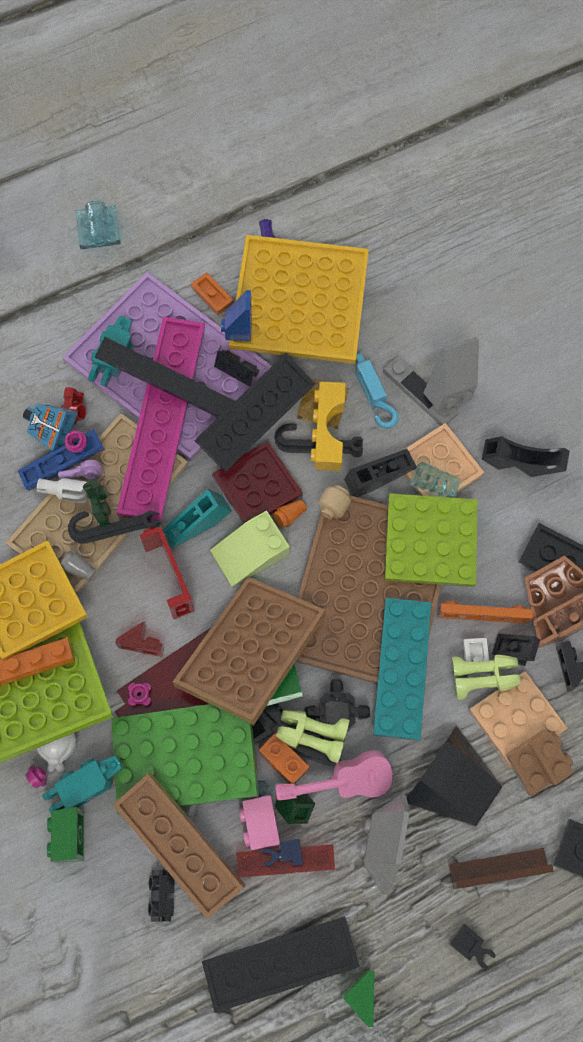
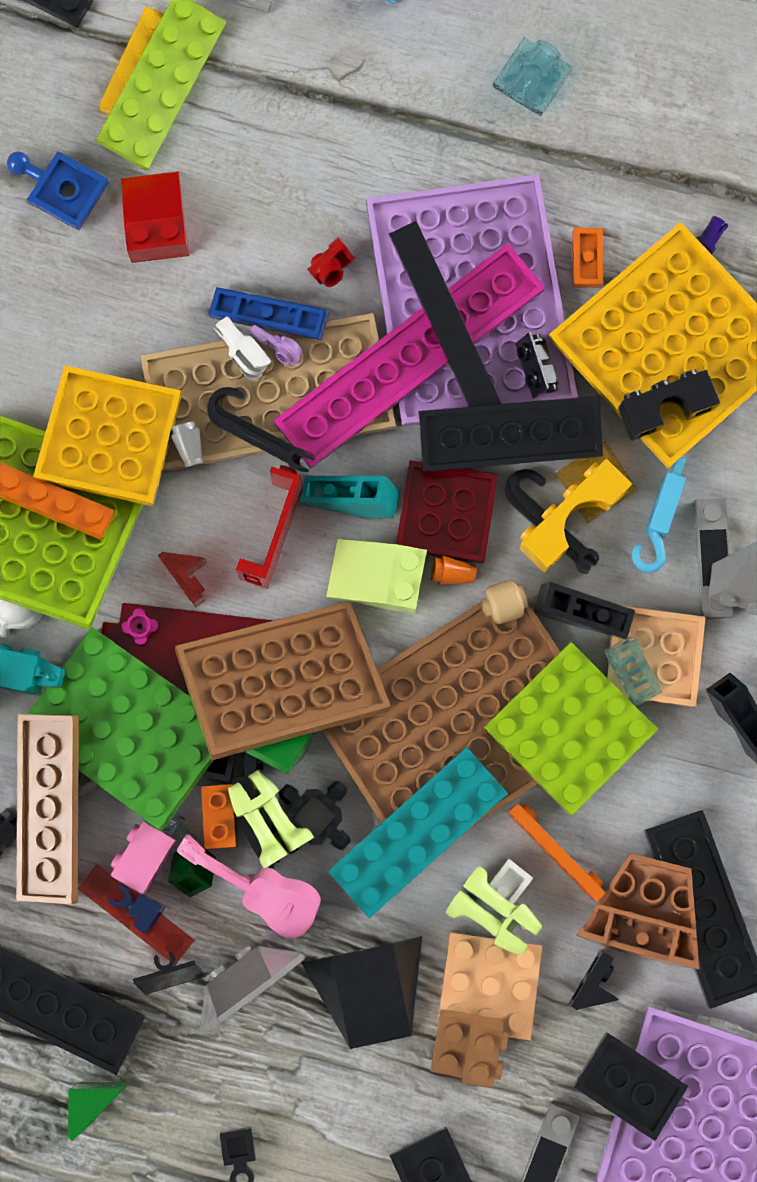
camera: 40 degrees right, 10 degrees up
(50, 424) = (289, 265): dark azure torso -> none
(71, 437) = (292, 301): dark pink plate -> none
(97, 495) = (267, 386): dark green plate -> none
(119, 333) = (437, 228): teal hinge -> none
(238, 319) = (578, 318): blue slope -> none
(333, 312) = (692, 393): none -> black arch
(338, 877) = (168, 975): none -> black piece
(499, 868) = (333, 1110): reddish brown fence -> none
(517, 646) = (553, 914): black slope -> none

